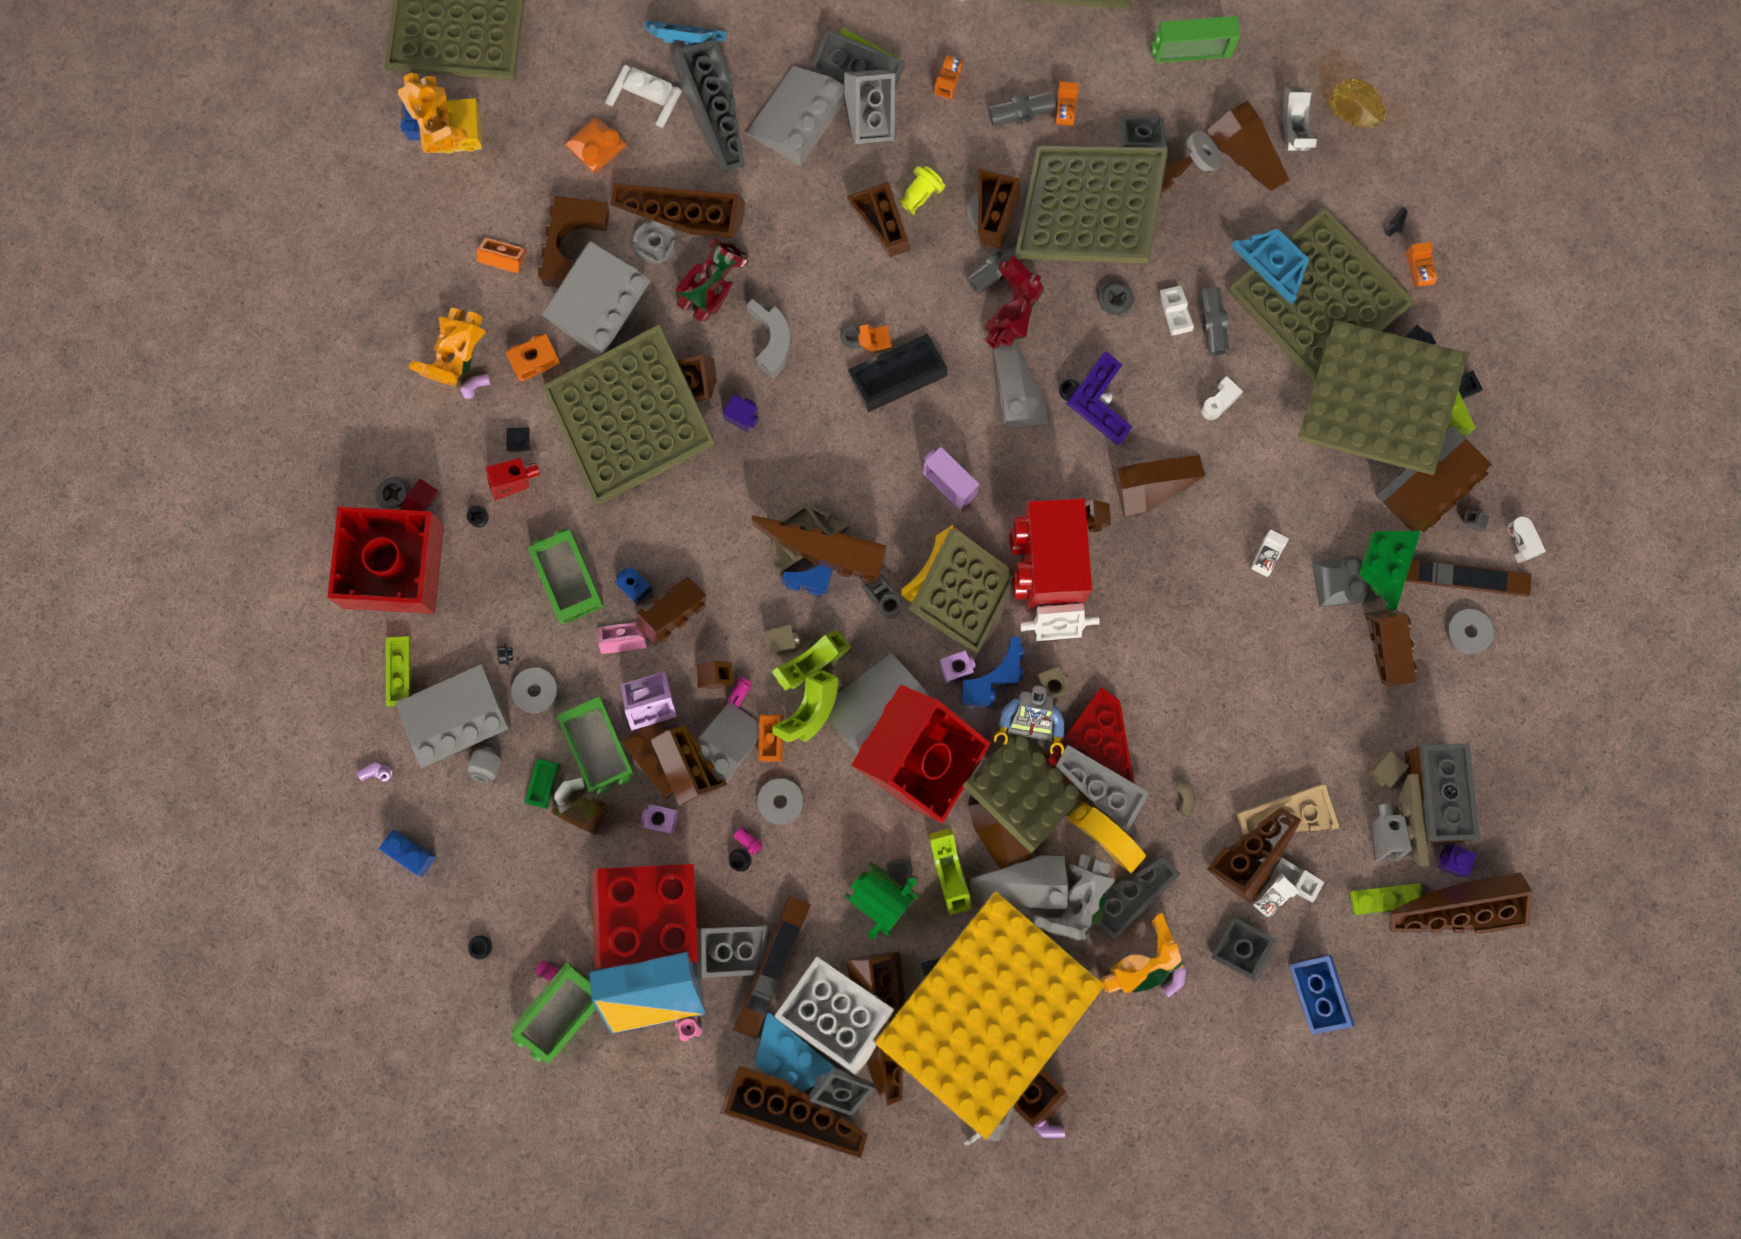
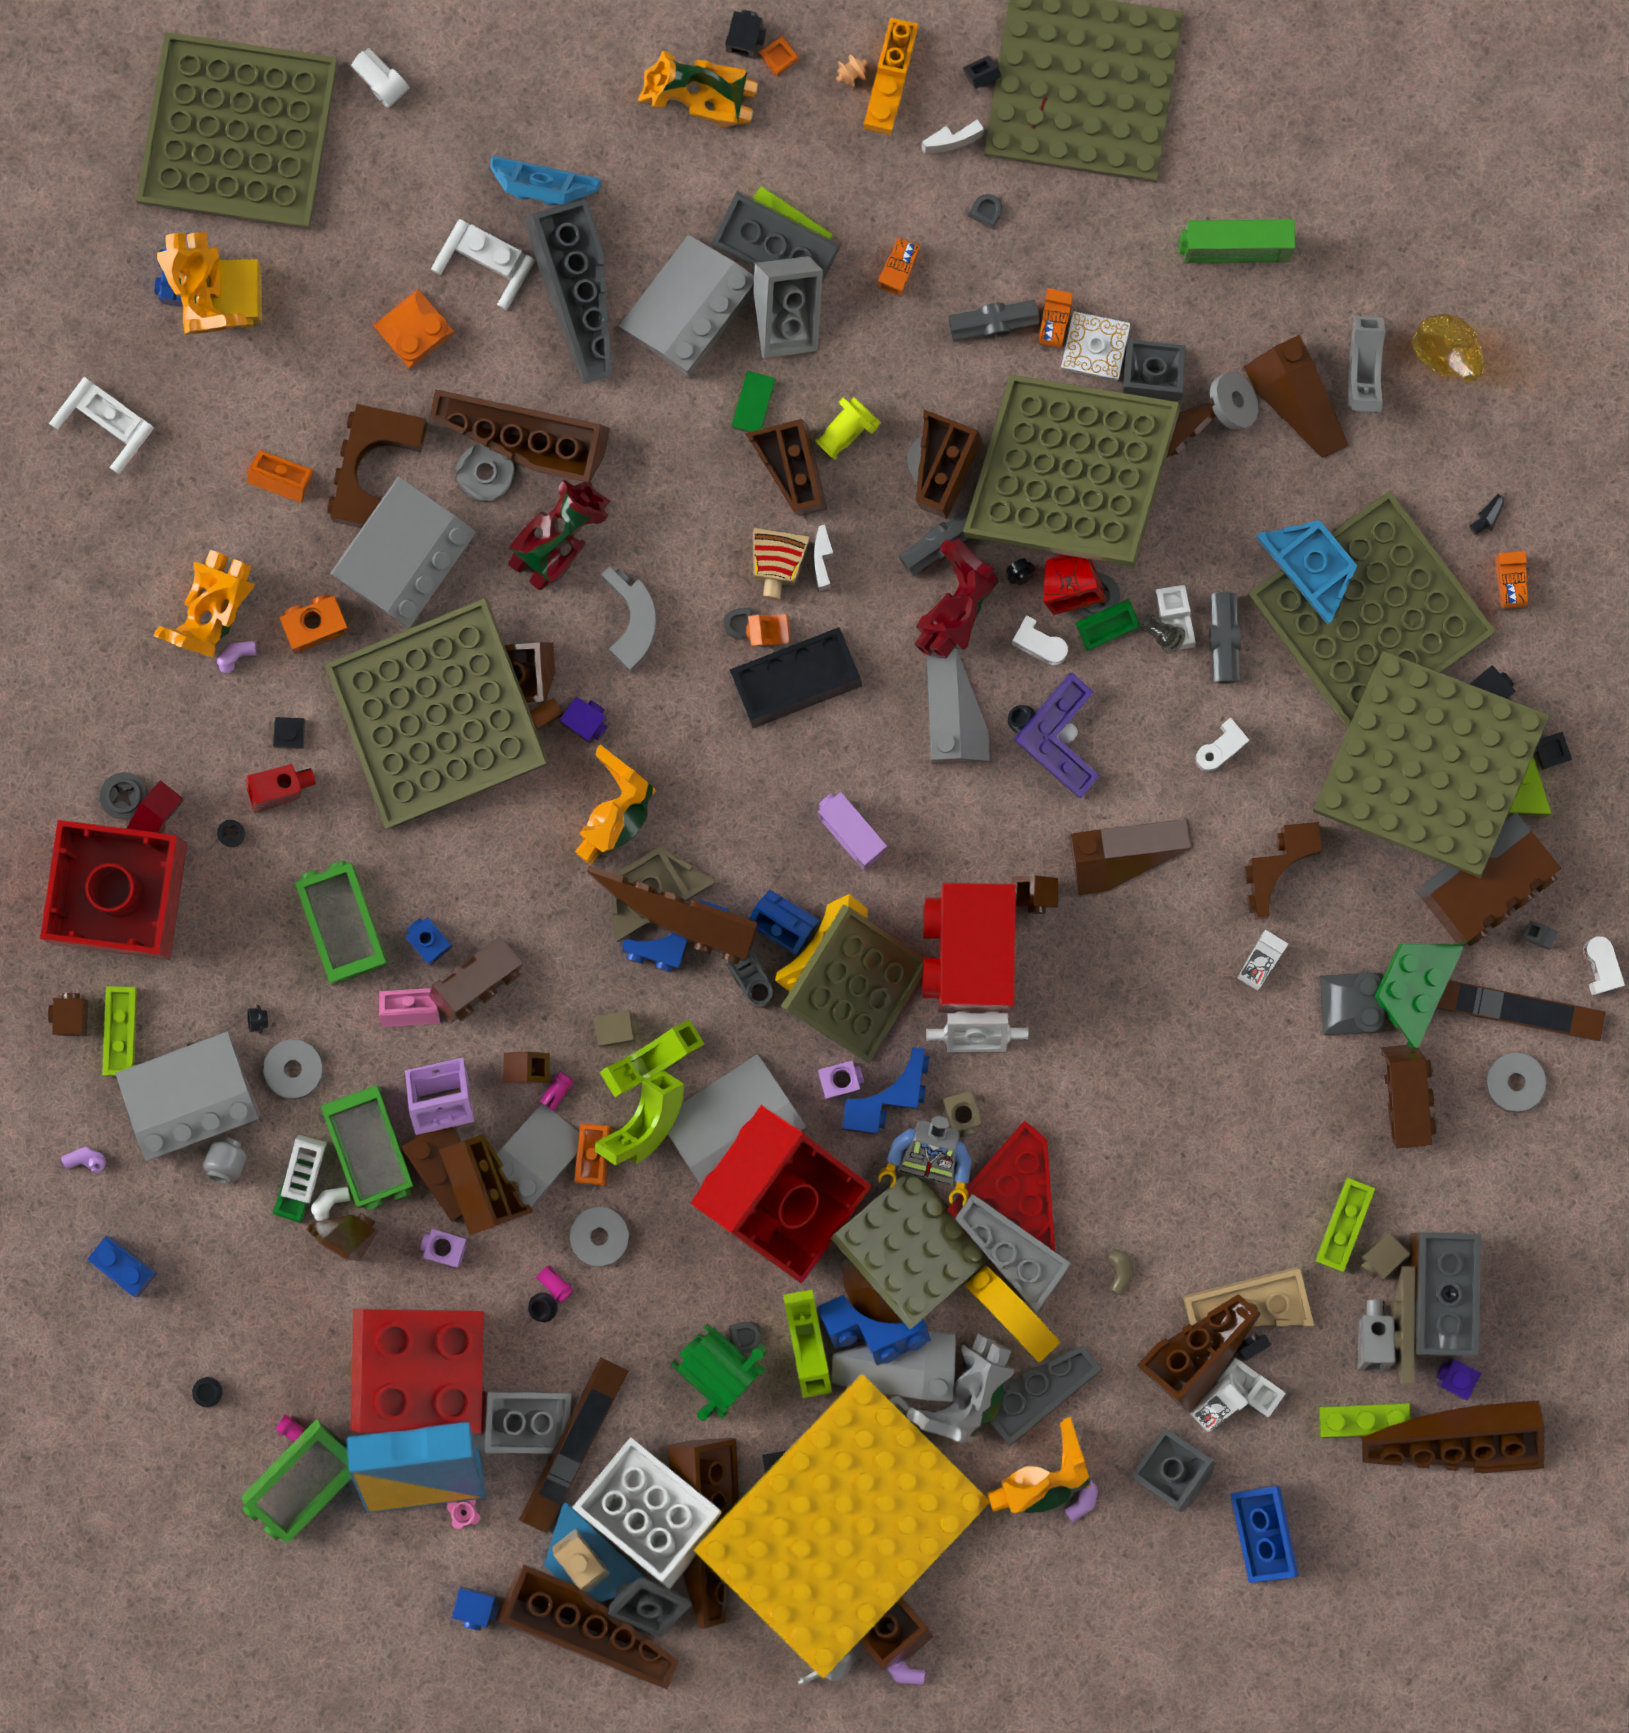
camera: 10 degrees right, 5 degrees up
(358, 662) = (69, 1015): none -> reddish brown brick
(371, 219) = (109, 415): none -> white plate
(558, 748) = (308, 1143): none -> white slope
(702, 1104) = (475, 1608): none -> blue brick
(712, 410) = (546, 713): none -> dark orange bar
(772, 482) = (619, 819): none -> light orange hips
(784, 1059) = (580, 1561): none -> tan torso
(849, 177) = (753, 402): none -> green tile
(877, 287) = (777, 559): none -> tan torso
(905, 551) = (784, 922): none -> blue brick
(910, 281) = (822, 552): none -> white slope
(1008, 35) = (986, 210): none -> dark grey tile
(1008, 863) = (883, 1339): none -> blue arch
(1058, 284) = (1020, 571): none -> black plate
(1078, 335) = (1045, 648): none -> white leg
(1097, 123) = (1095, 346): none -> white plate
(1098, 286) = (1071, 584): none -> red torso
(1127, 317) = (1107, 624): none -> green tile
(1172, 320) = (1166, 635): none -> clear smoke pin
(1262, 488) = (1263, 872): none -> reddish brown arch
(1295, 847) = (1253, 1345): none -> black plate
(1354, 749) = (1344, 1225): none -> lime plate

